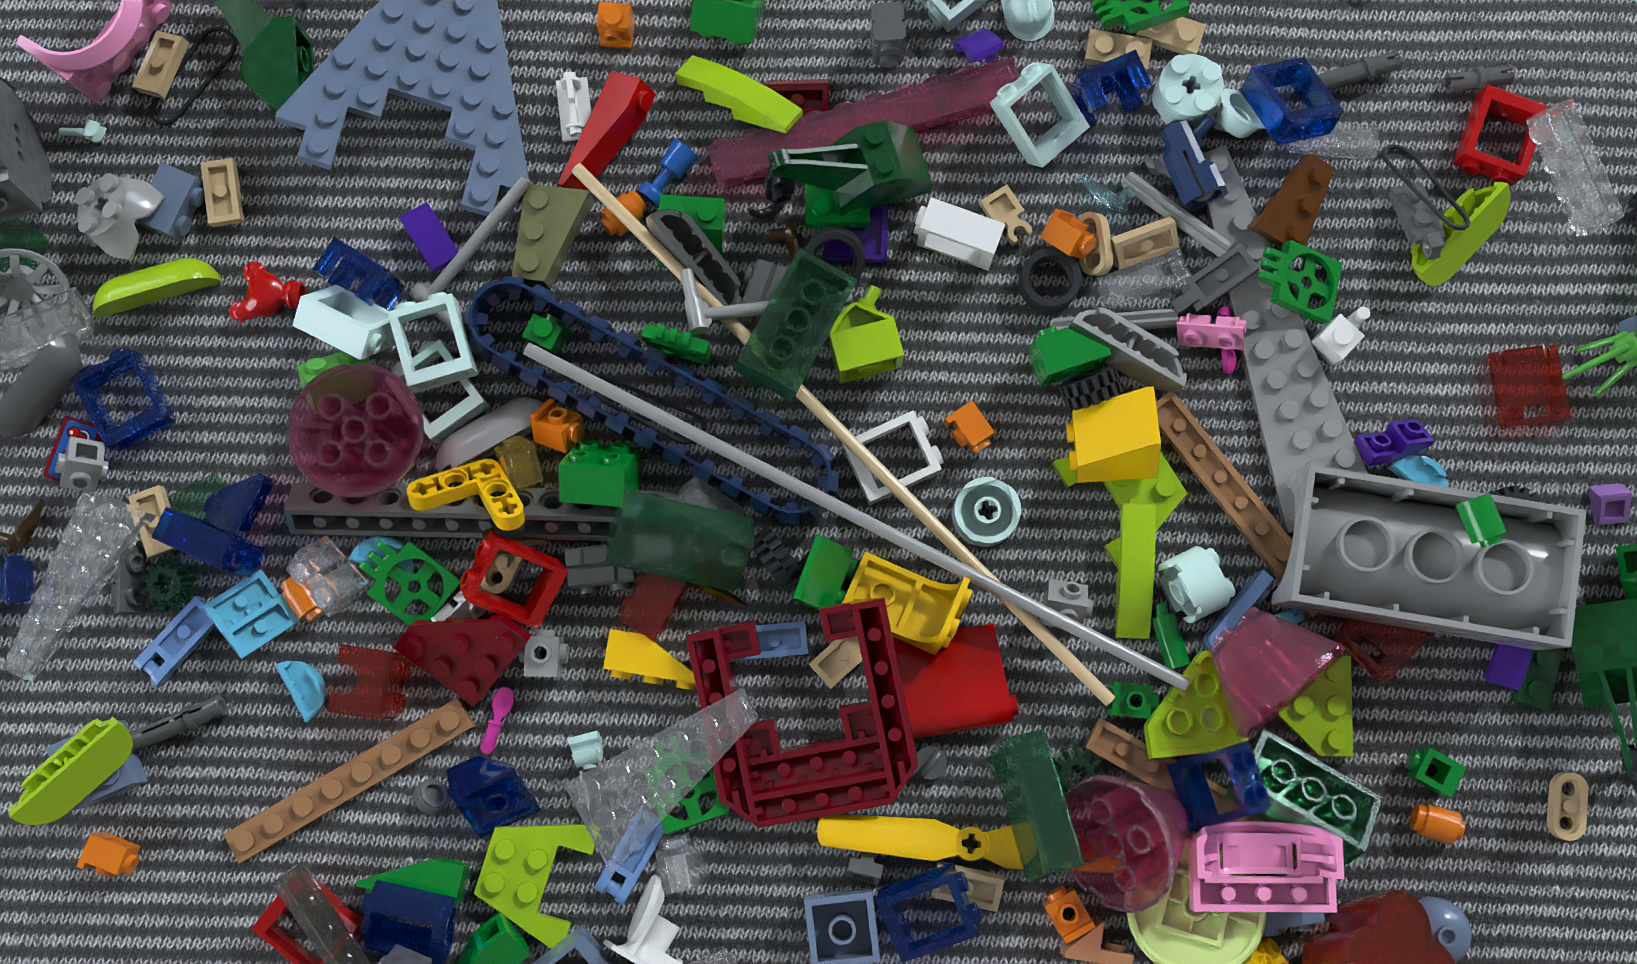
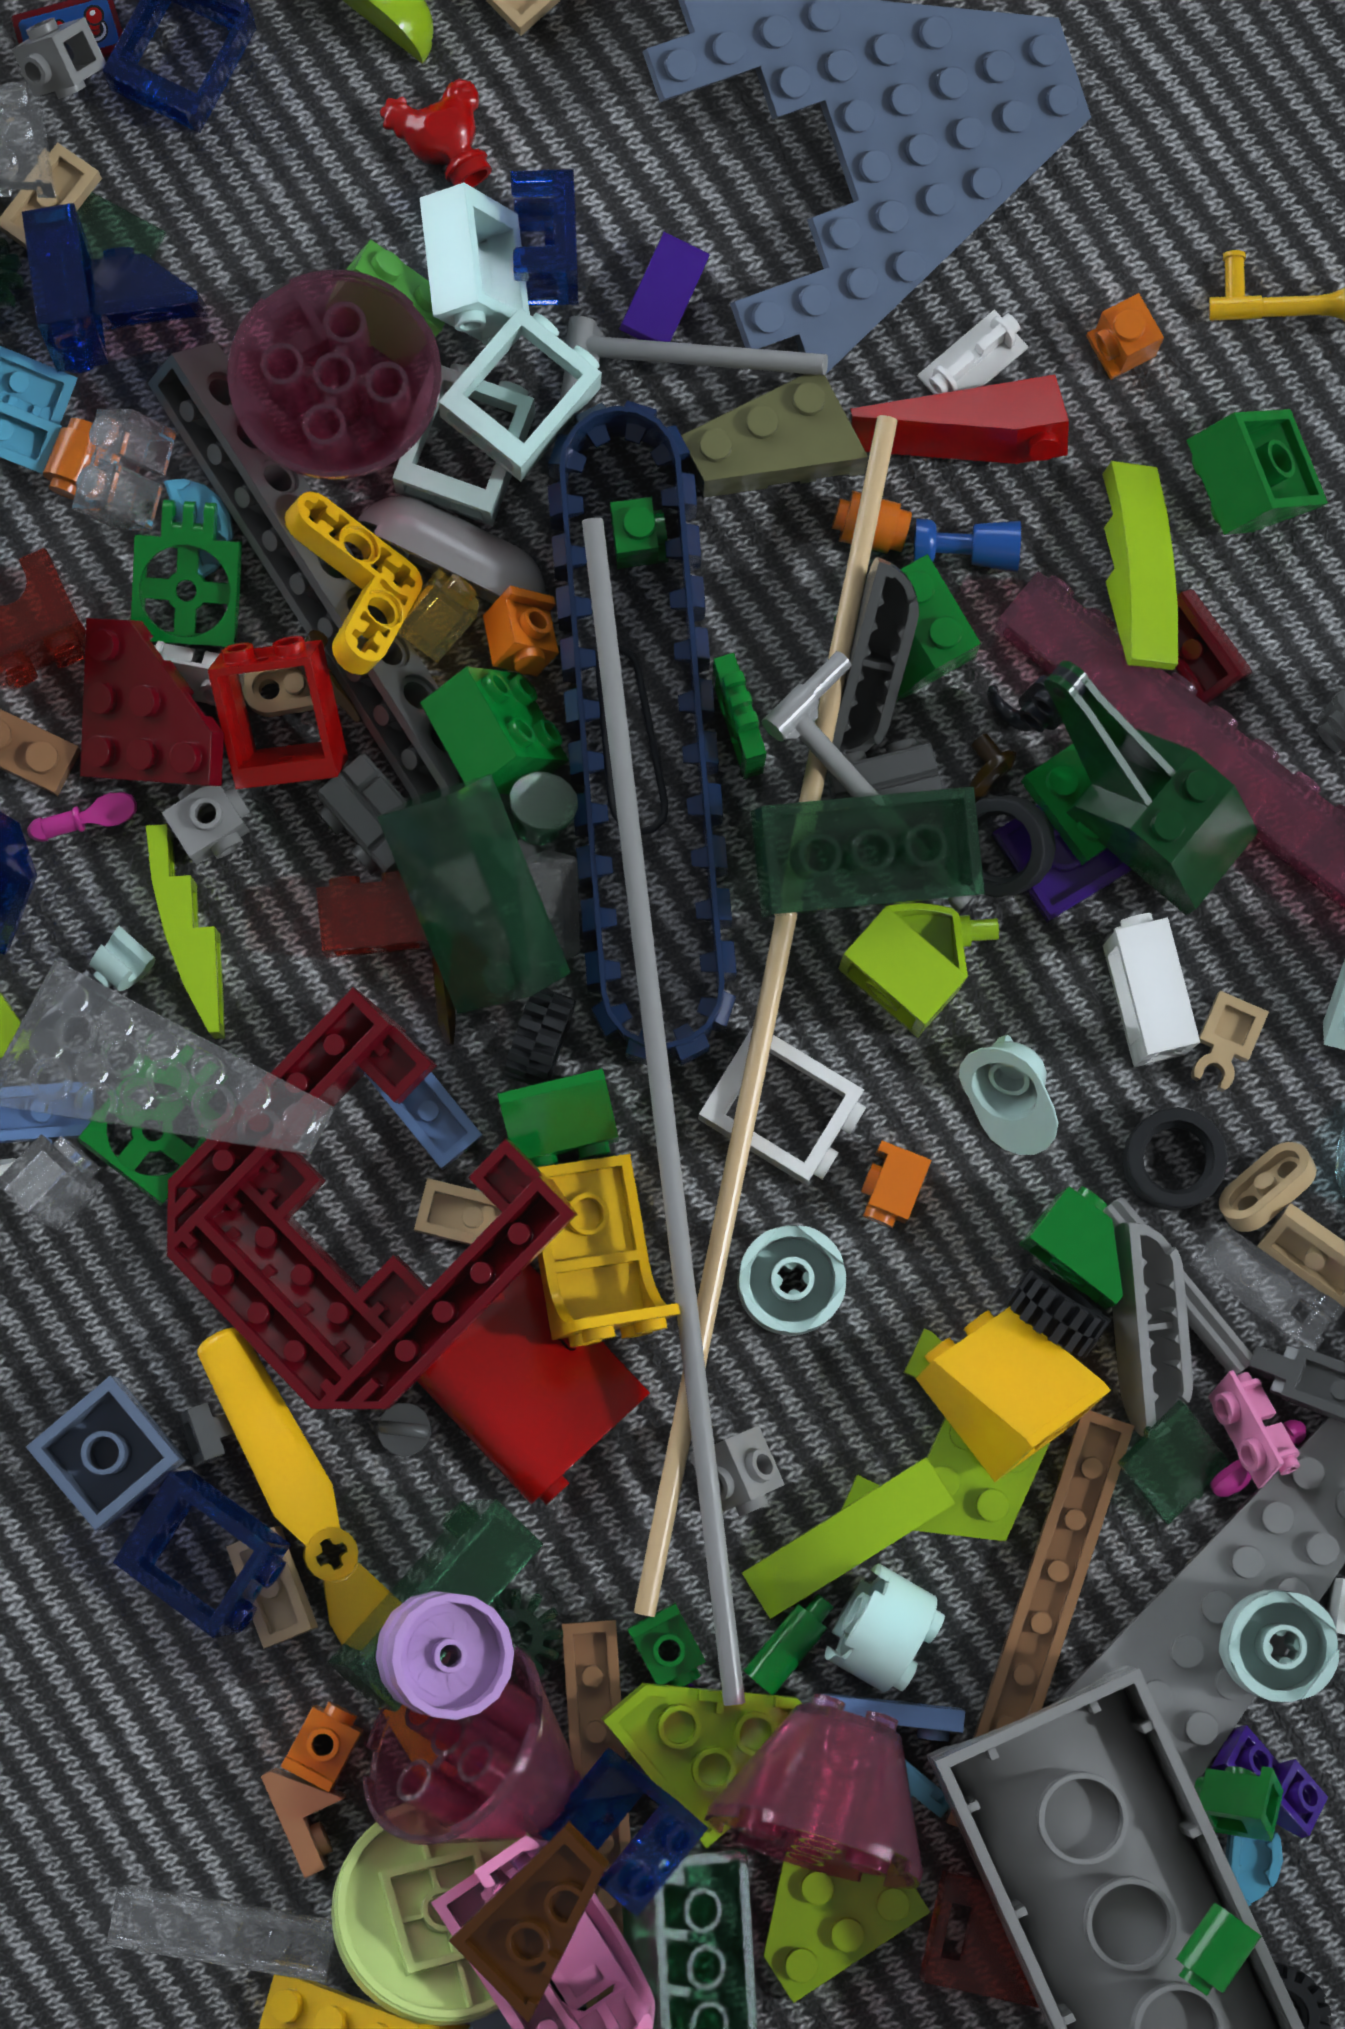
camera: 50 degrees right, 0 degrees up
(605, 707) = (192, 947): none -> lime slope
(641, 655) = (291, 948): yellow slope -> none
(657, 475) = (542, 807): none -> clear green piece
(964, 339) = (1010, 1096): none -> light aqua piece
(1068, 234) = (1253, 1141): orange brick -> none
(1090, 806) = (412, 1647): none -> lavender wheel
(1202, 382) = (1173, 1462): none -> clear green piece
(1239, 864) = (531, 1919): none -> reddish brown wing
(1333, 371) = (1310, 1642): none -> light aqua brick
(1400, 460) = (1241, 1801): none -> green brick

